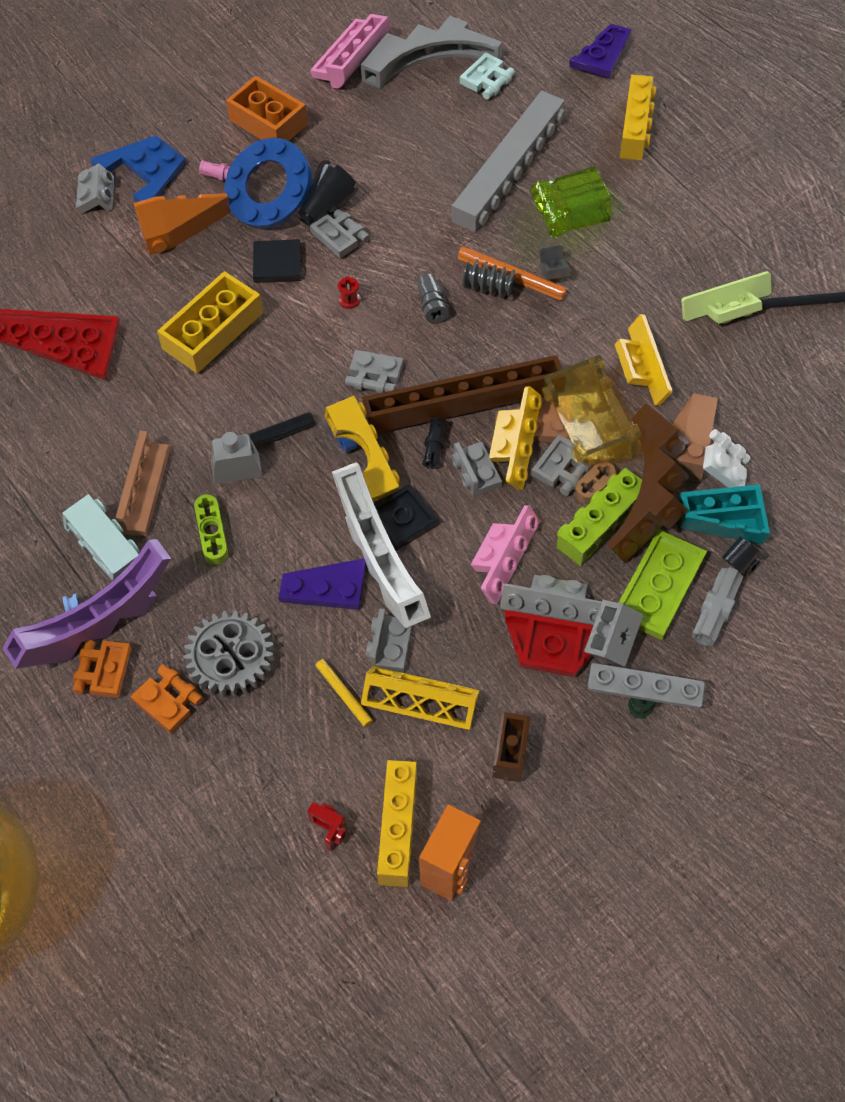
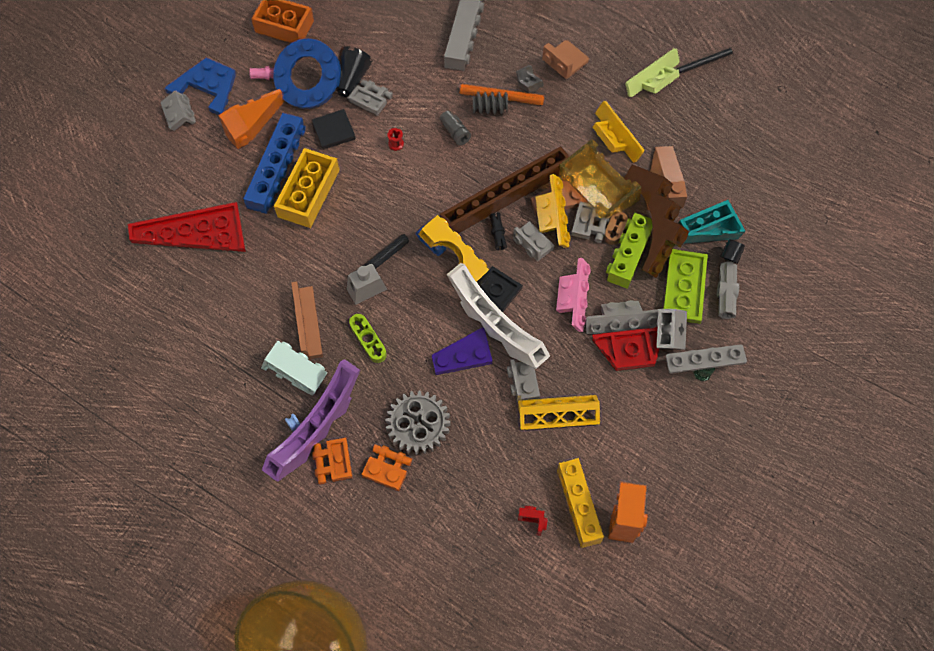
camera: 20 degrees left, 5 degrees up
(184, 281) = (285, 136): none -> blue brick
(344, 693) = (506, 425): yellow bar -> none
(377, 367) = (435, 188): light grey plate -> none
(511, 747) = (634, 427): reddish brown brick -> none
(572, 201) = (524, 31): clear neon green piece -> none
(613, 249) = (564, 58): none -> nougat bracket
(725, 466) = (696, 189): white plate -> none

